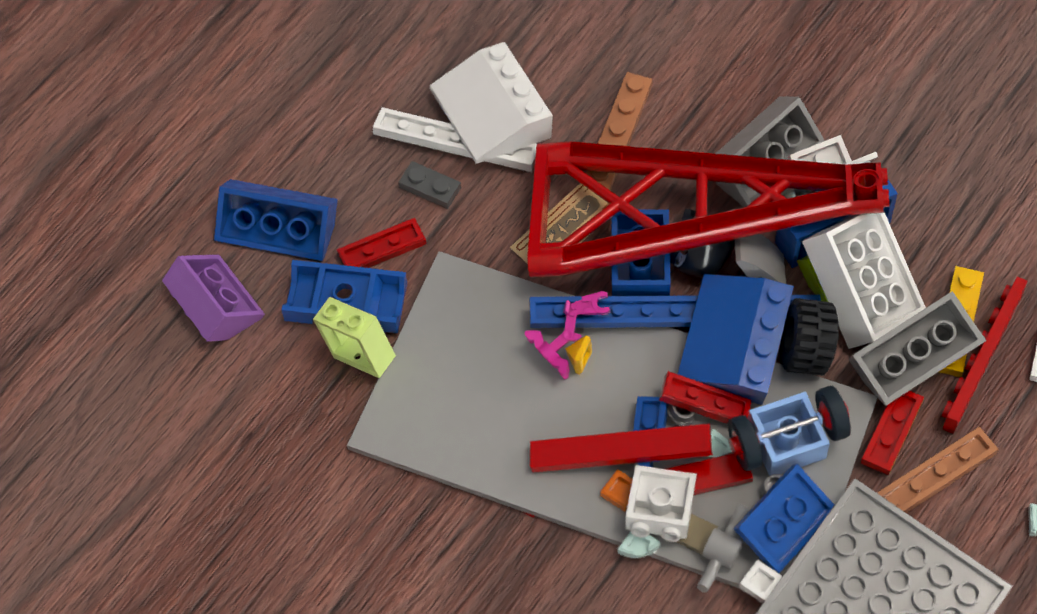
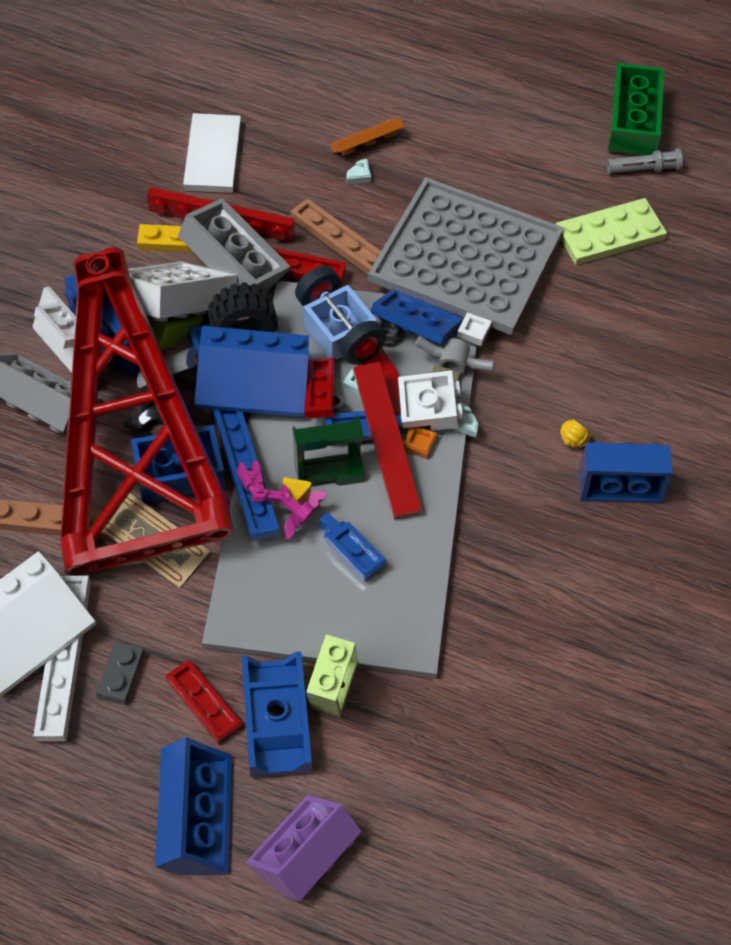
camera: 110 degrees left, 5 degrees down
(502, 392) = (351, 547): none -> blue hinge
(610, 385) = (342, 468): none -> dark green piece

